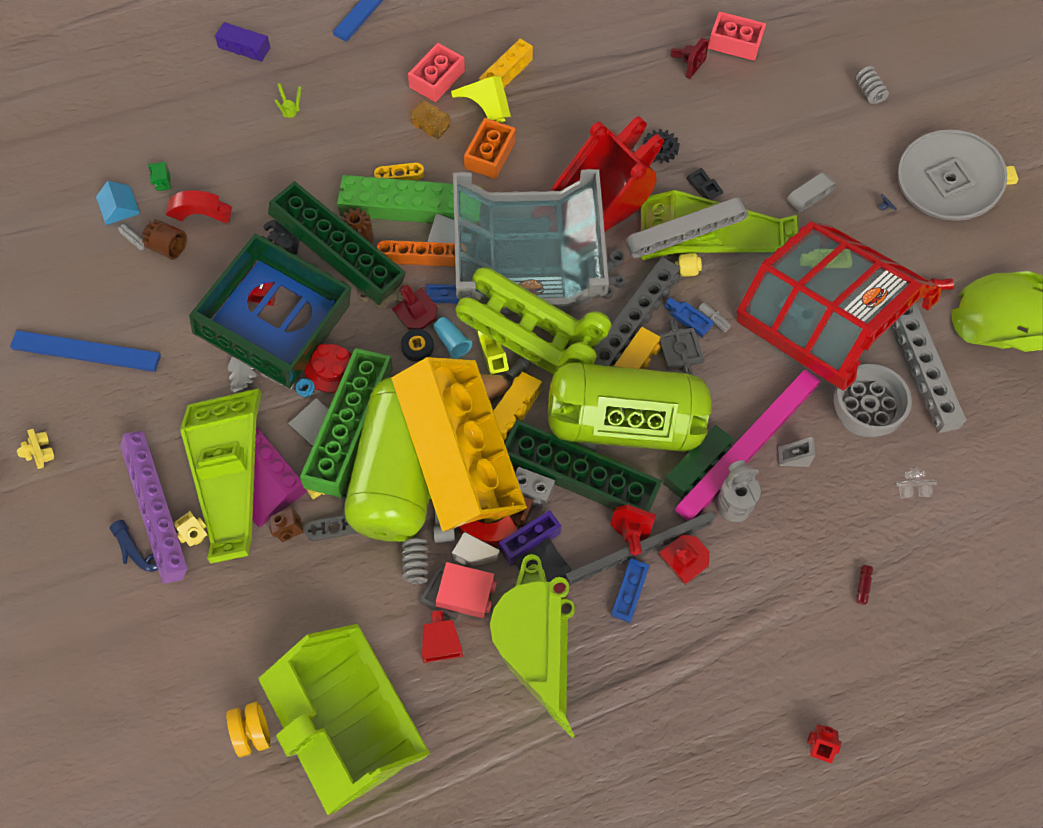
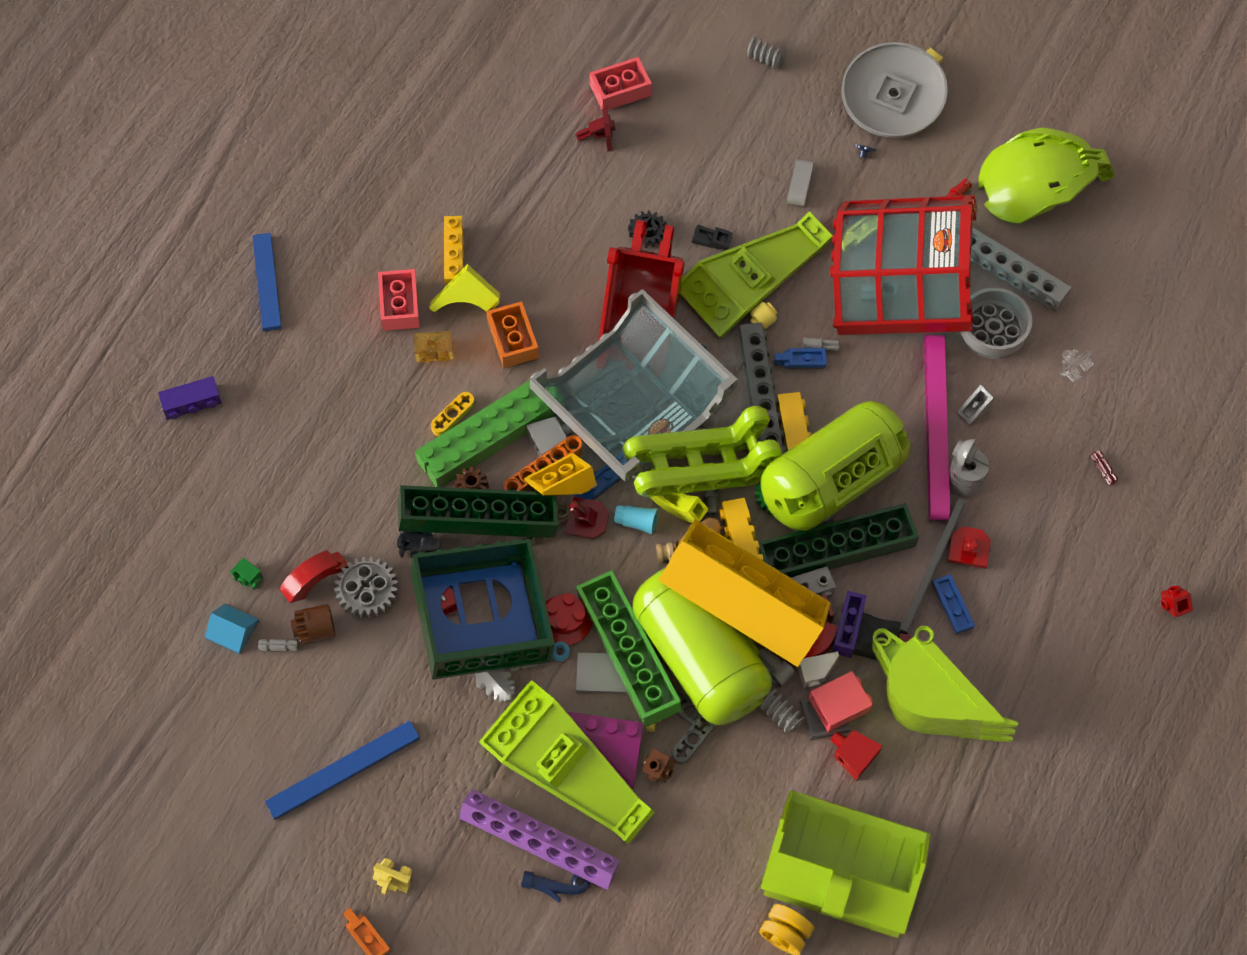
camera: 40 degrees left, 0 degrees up
(190, 529) = (588, 830): light yellow brick -> none
(219, 238) = (352, 578): none -> light grey gear
(288, 108) = (296, 426): lime plant -> none
(417, 336) = (620, 539): black bush -> none
(421, 266) = (563, 477): none -> yellow slope
(633, 525) = (915, 553): red piece -> none
(680, 348) = (819, 389): dark grey plate -> none
(686, 227) = (742, 286): light grey beam -> none
(698, 462) = (913, 471): dark green brick -> none

